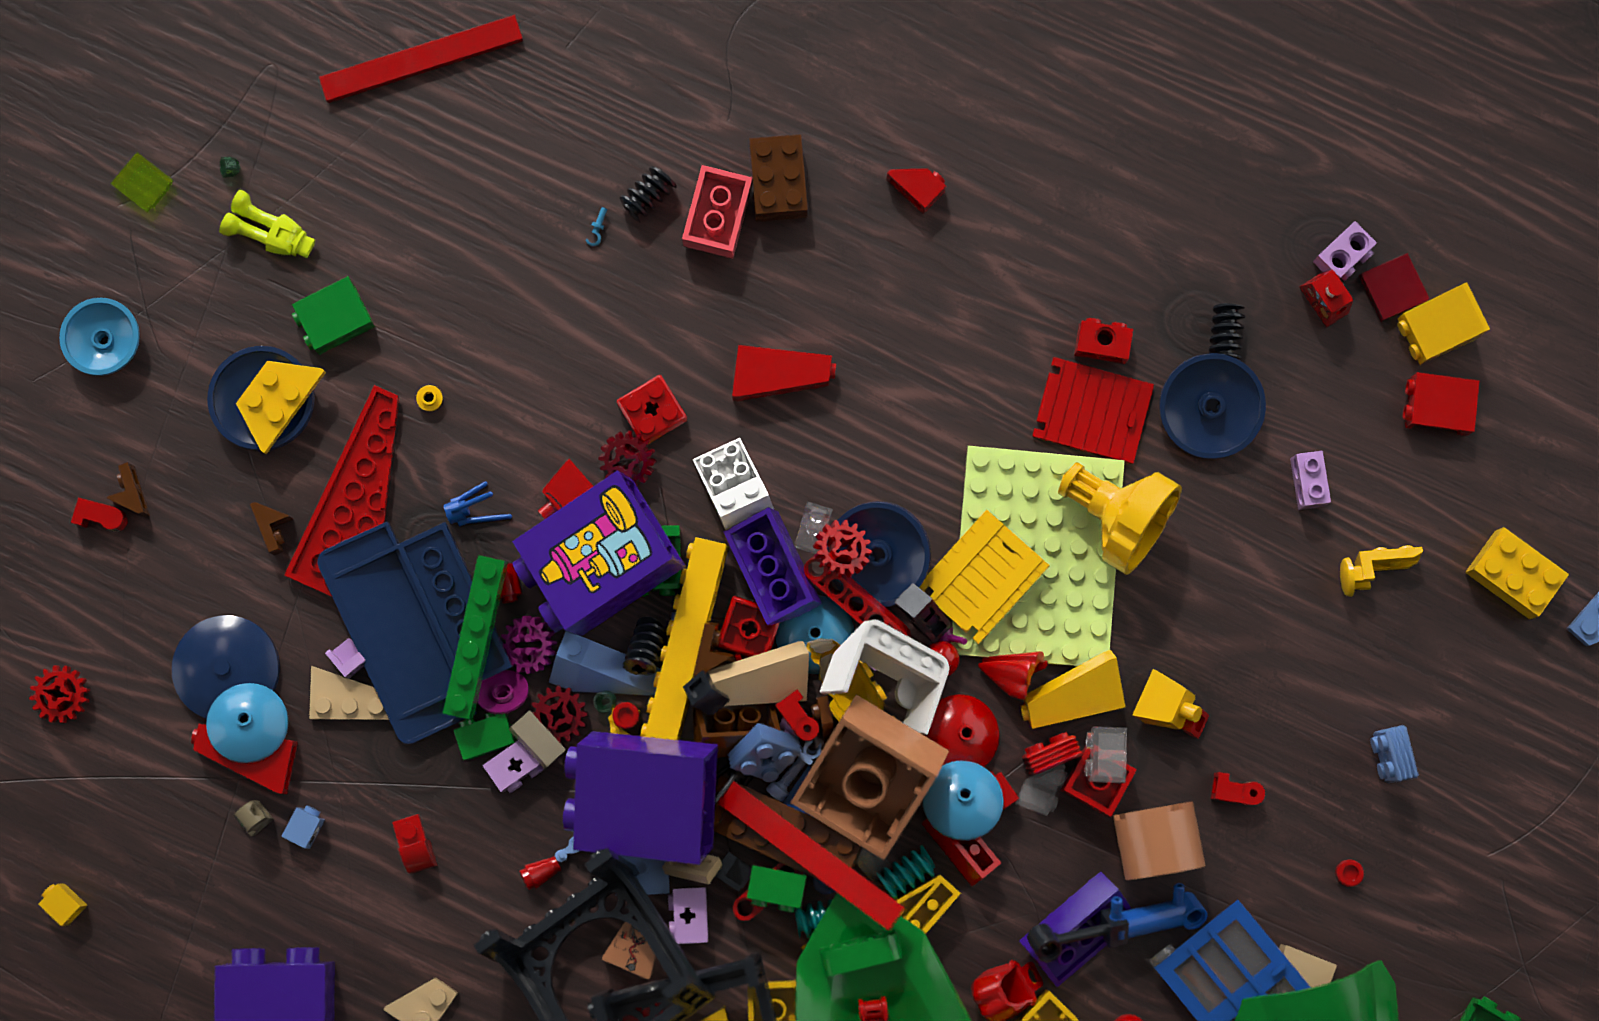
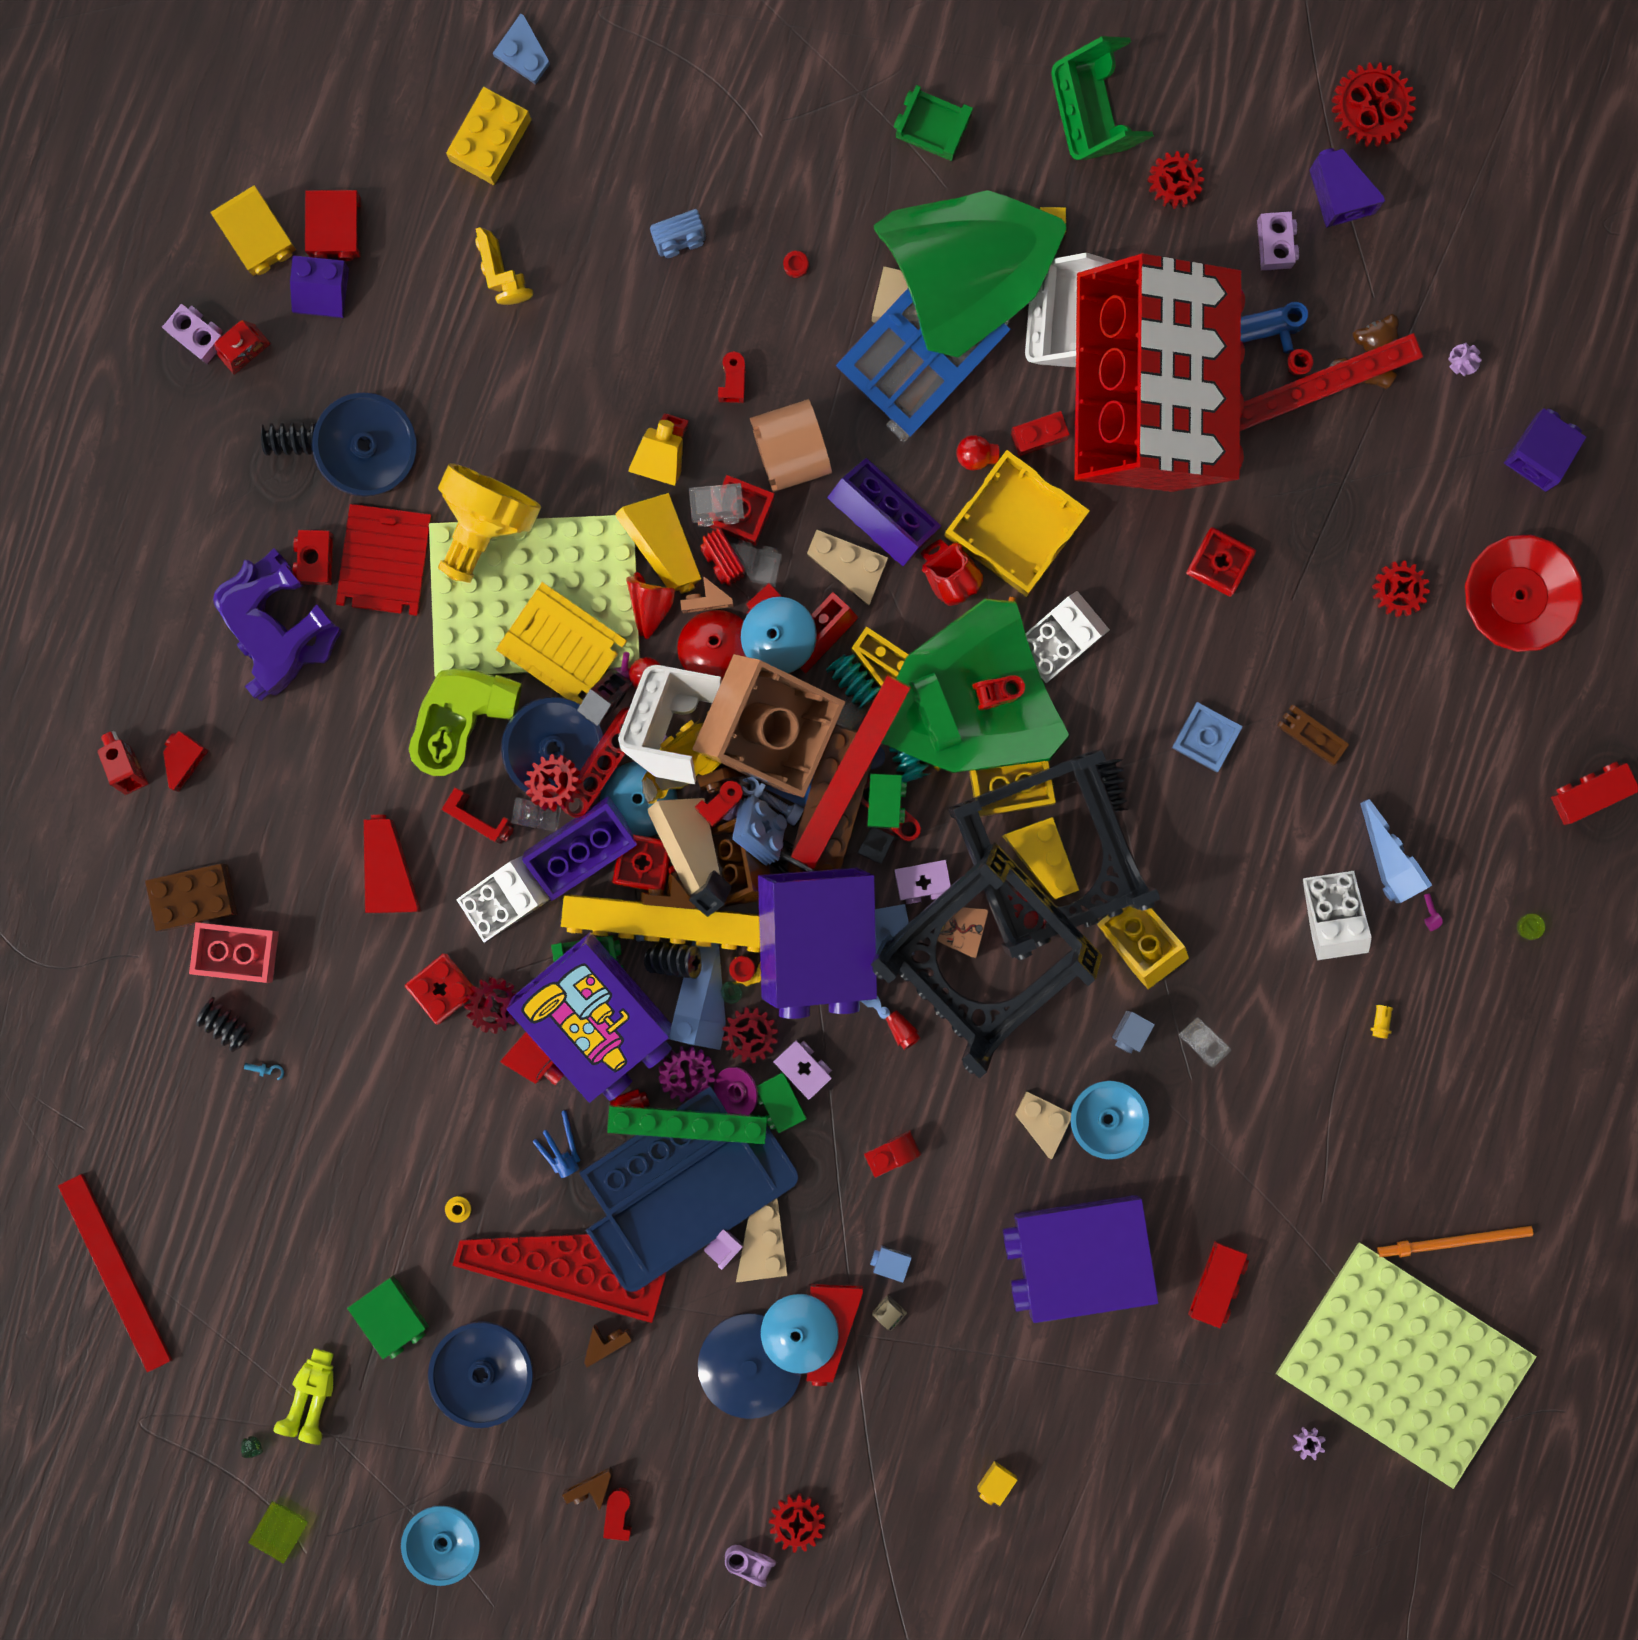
camera: 90 degrees left, 5 degrees up
(23, 644) = (750, 1566): none -> lavender piece
(275, 399) = (479, 1359): yellow wing -> none
(537, 739) = (777, 1050): dark tan tile -> none
(700, 873) = (882, 875): tan plate -> none
(829, 447) = (454, 808): none -> red panel
(919, 126) = (121, 764): none -> red torso
(927, 457) = (451, 714): none -> lime piece
(1010, 739) = (714, 599): none -> nougat slope
(1015, 289) = (273, 648): none -> dark purple piece
(1029, 884) = (849, 563): none -> tan wing
(1120, 925) = (875, 474): piece -> none
(1310, 480) = (424, 342): lavender brick -> none
(1379, 381) = (318, 286): none -> dark purple slope
(1394, 287) = (222, 282): dark red tile -> none

